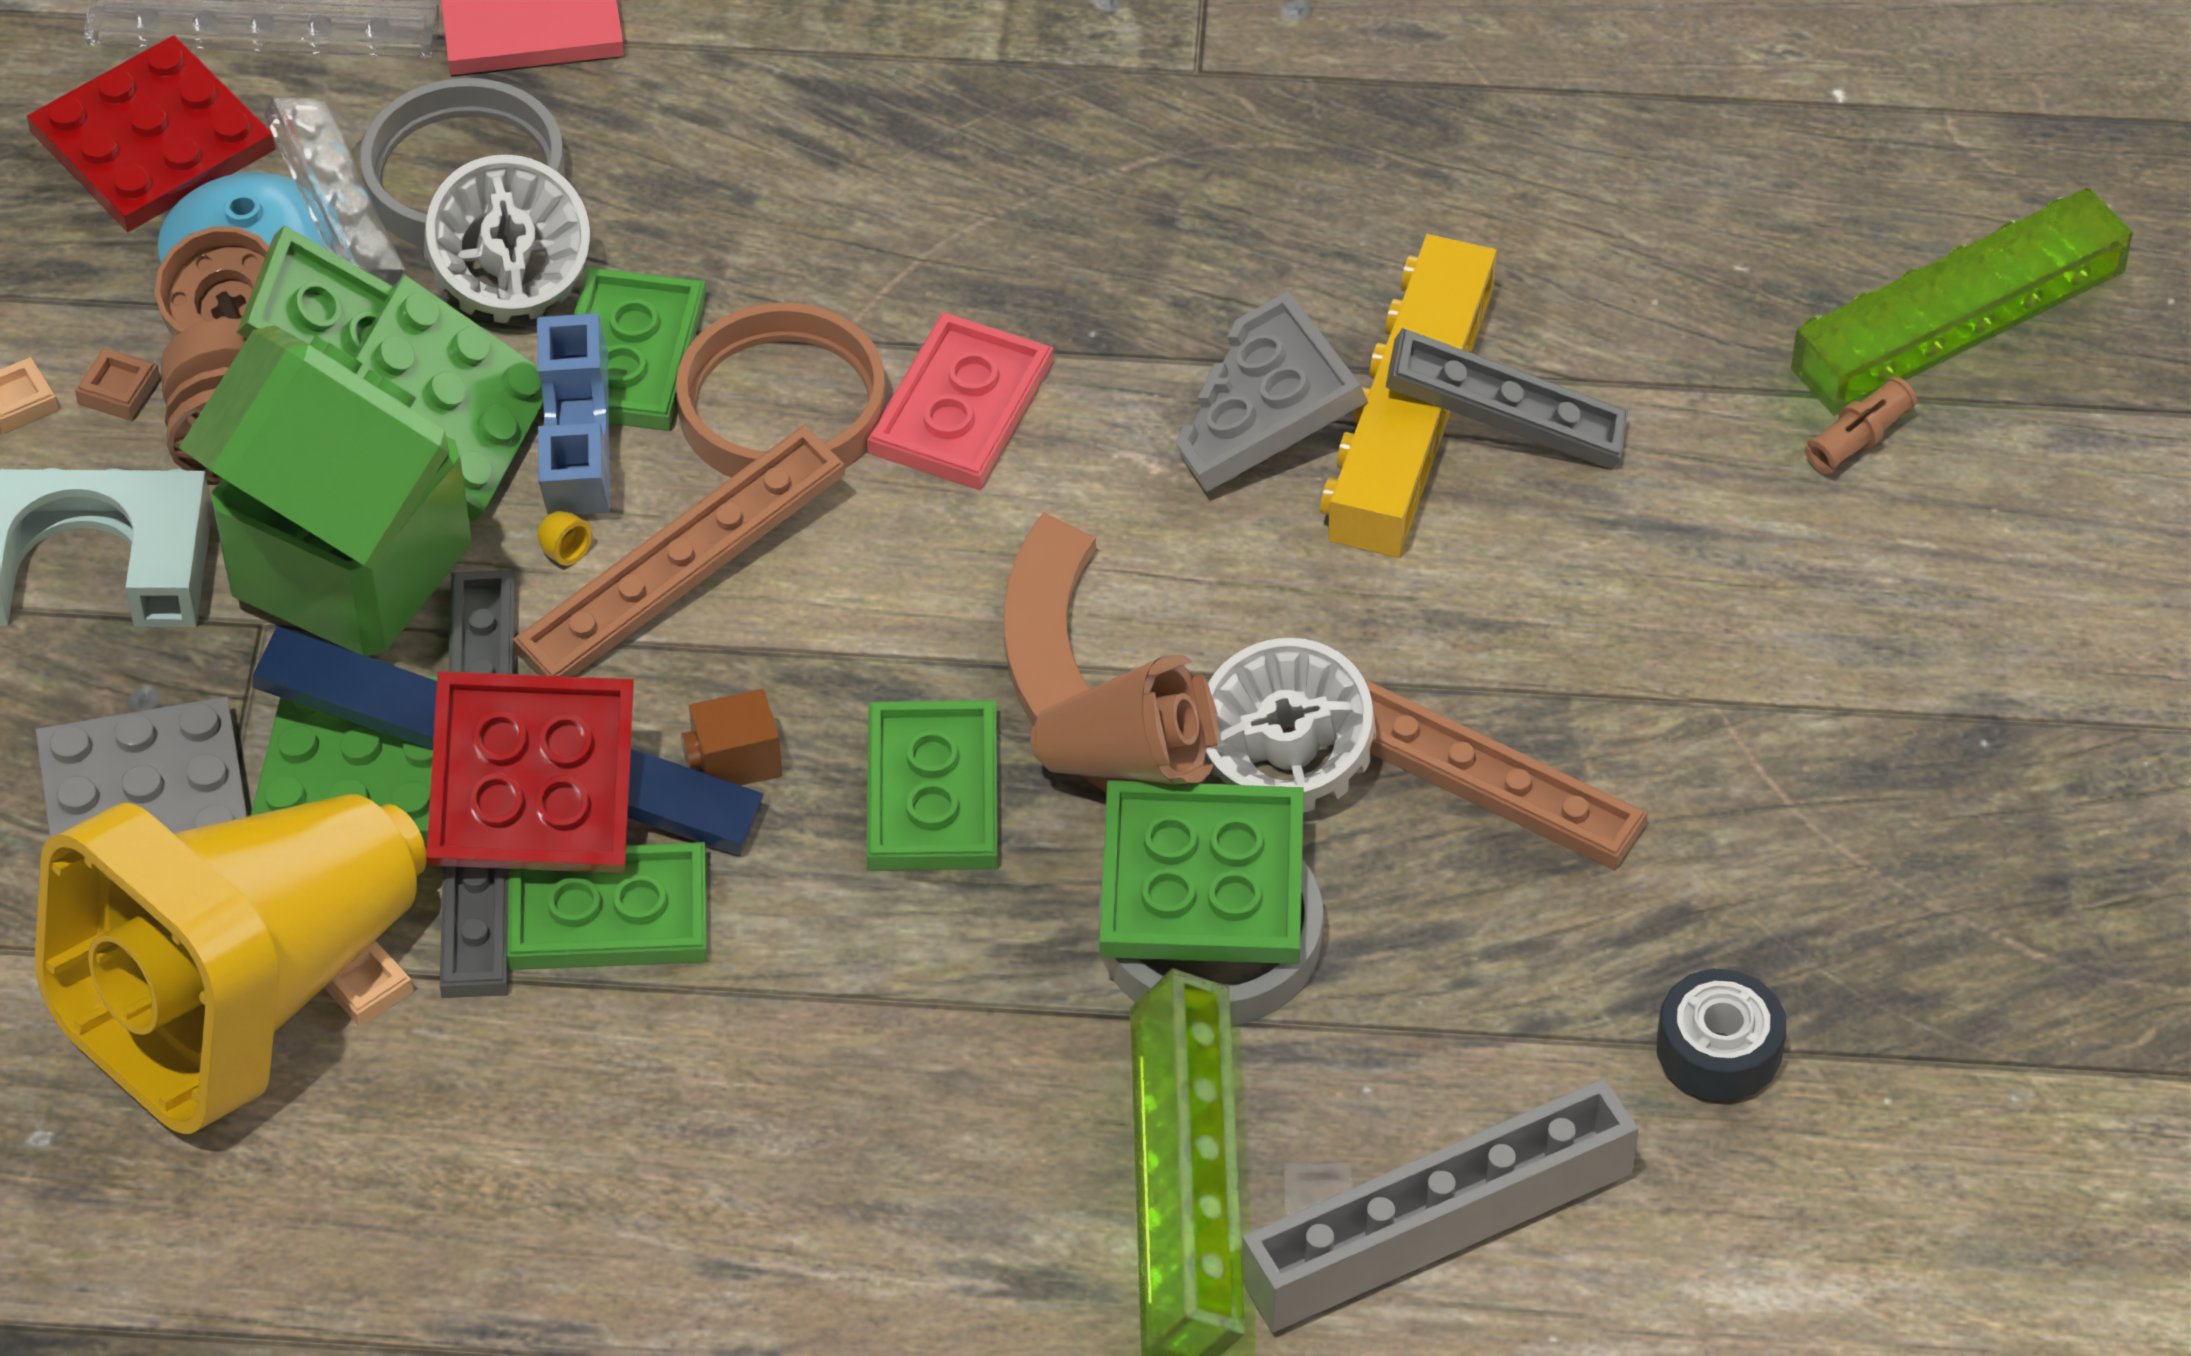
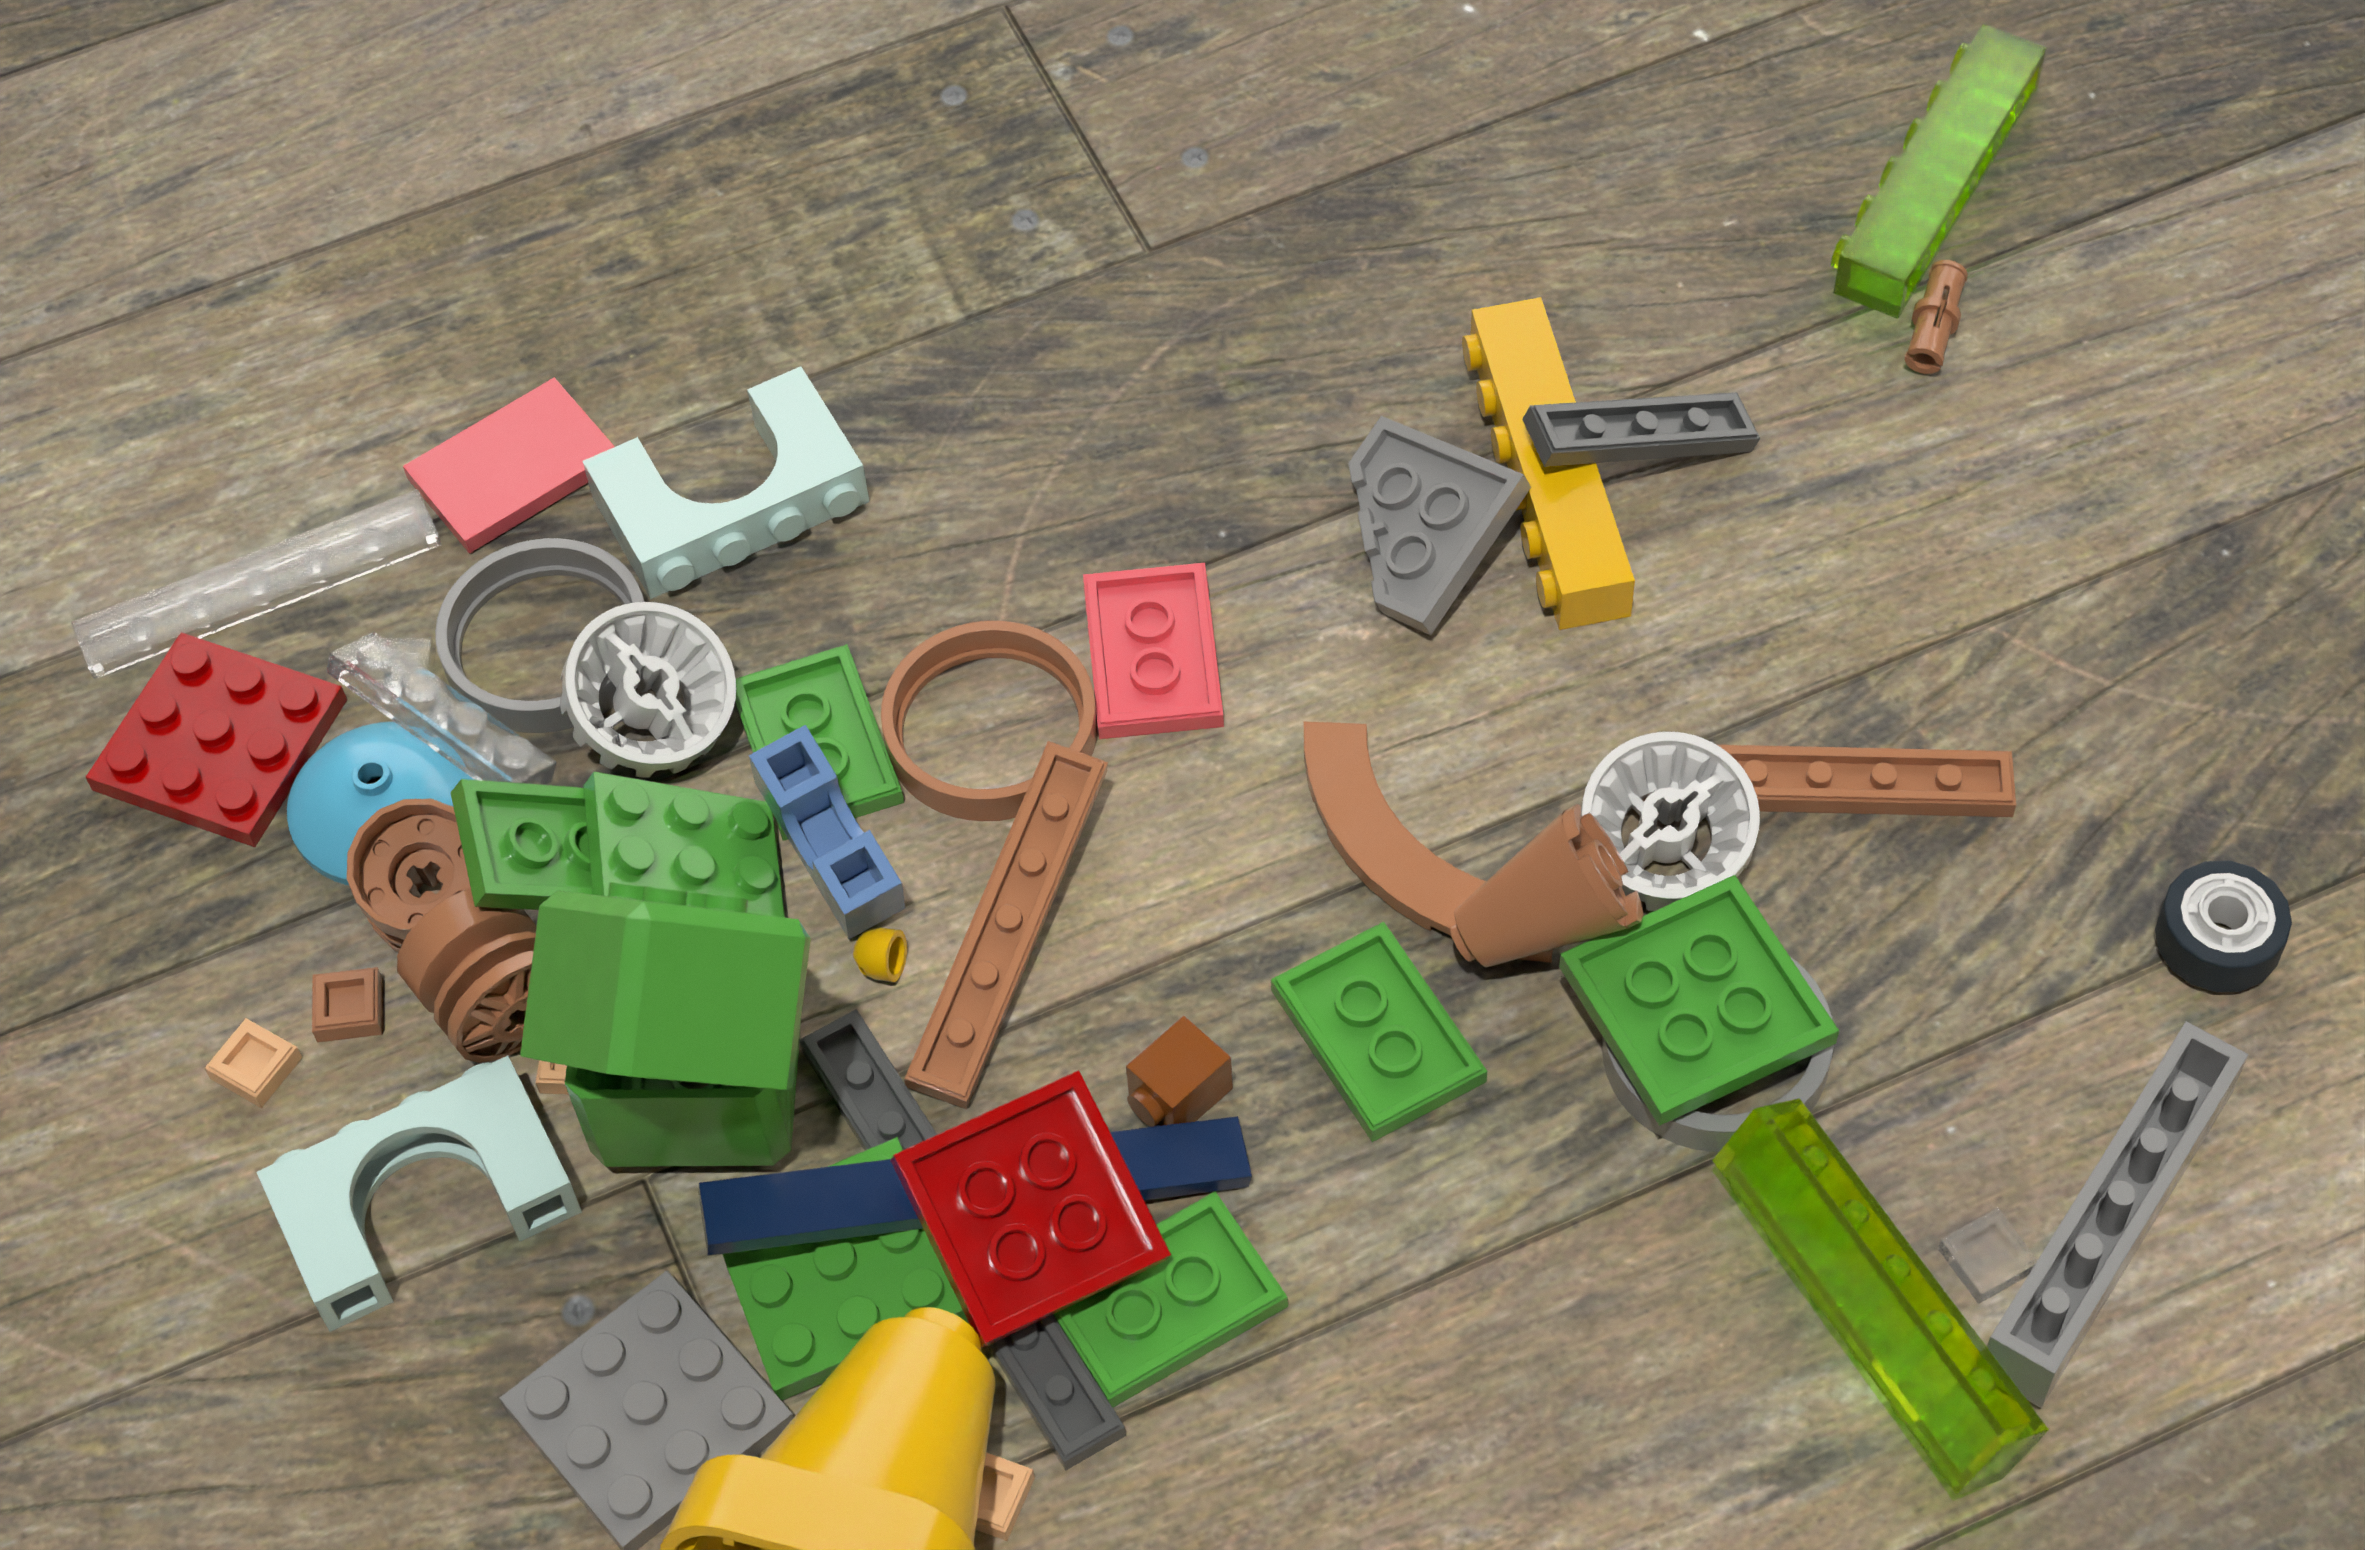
camera: 25 degrees left, 5 degrees up
(756, 137) = (683, 539): none -> light aqua arch

